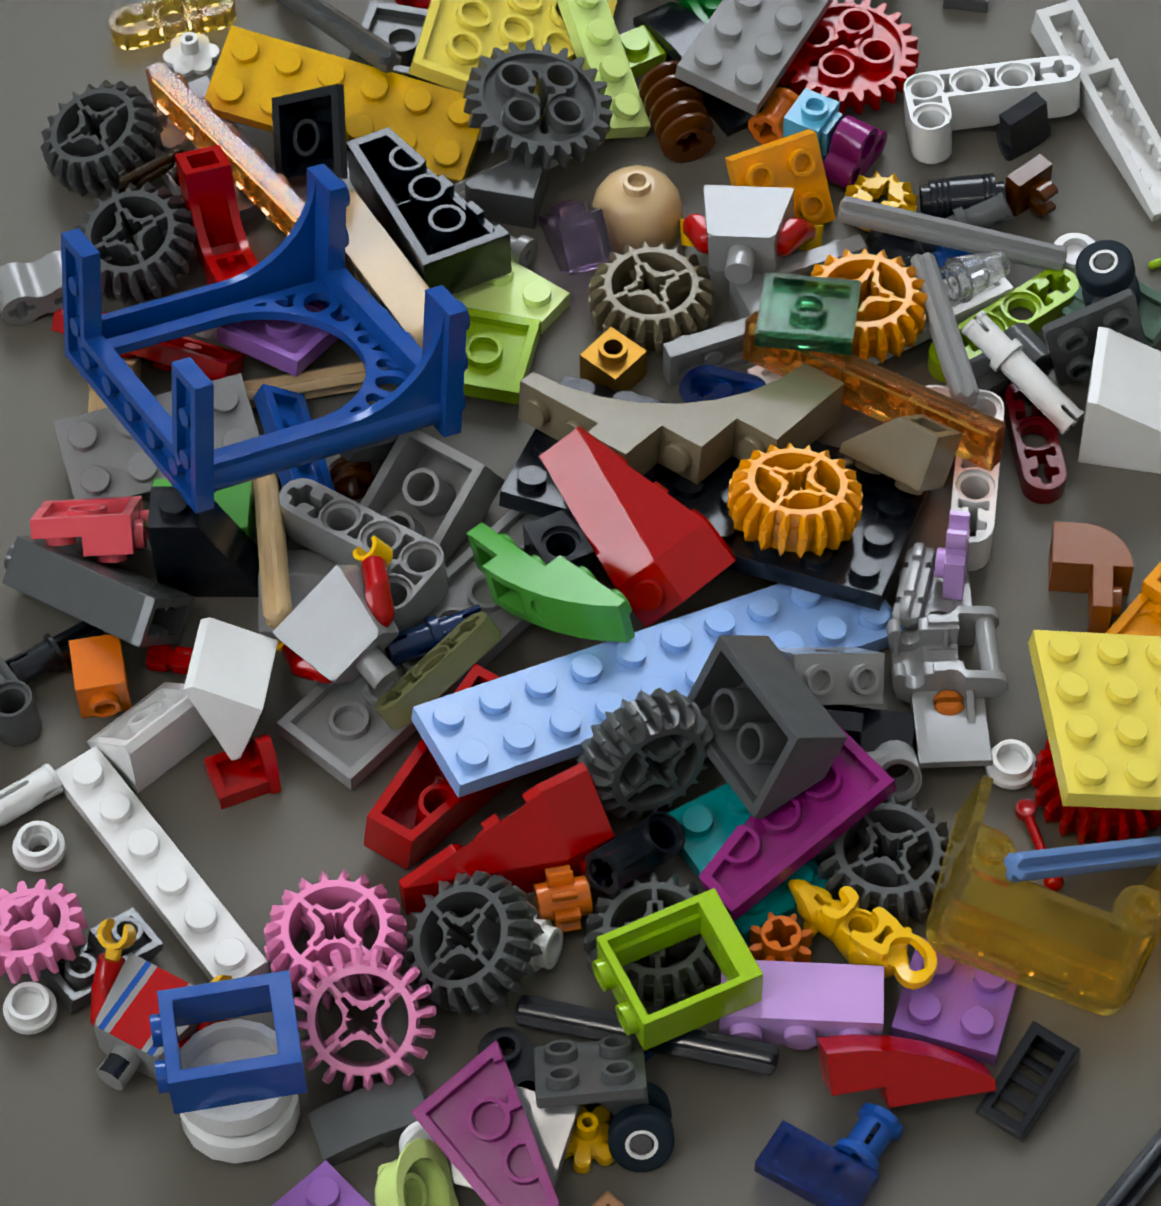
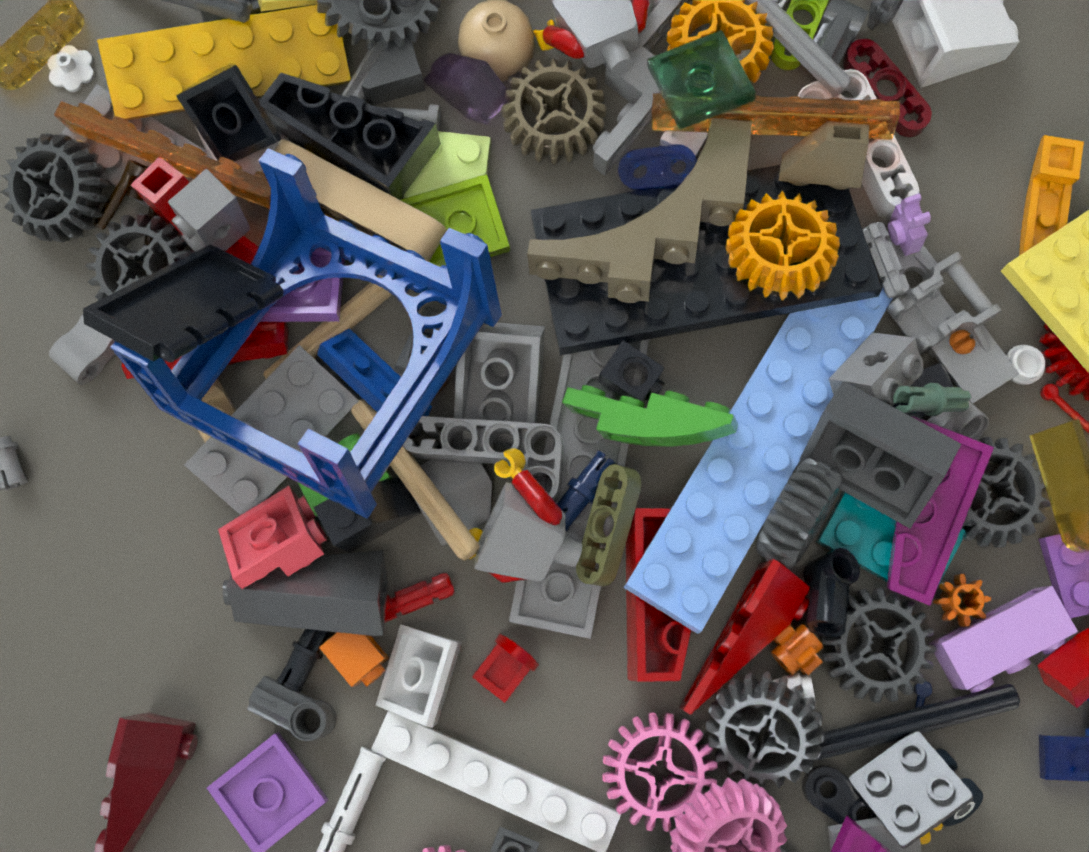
camera: 30 degrees left, 25 degrees up
(38, 834) = (395, 827): white plate -> none
(154, 245) = (183, 304): none -> black hinge
(229, 680) = (466, 621): white slope -> none
(230, 210) = (208, 213): none -> light grey brick
(614, 361) = (554, 192): pearl gold plate -> none
(641, 534) = (691, 335): red wedge -> none
(694, 916) = (983, 671): lime window -> none
(859, 708) = (931, 399): none -> sand green axle
(863, 935) = (1021, 566): yellow animal -> none
(1022, 372) = (849, 35): white pin -> none
(1090, 562) = (993, 171): brick -> none

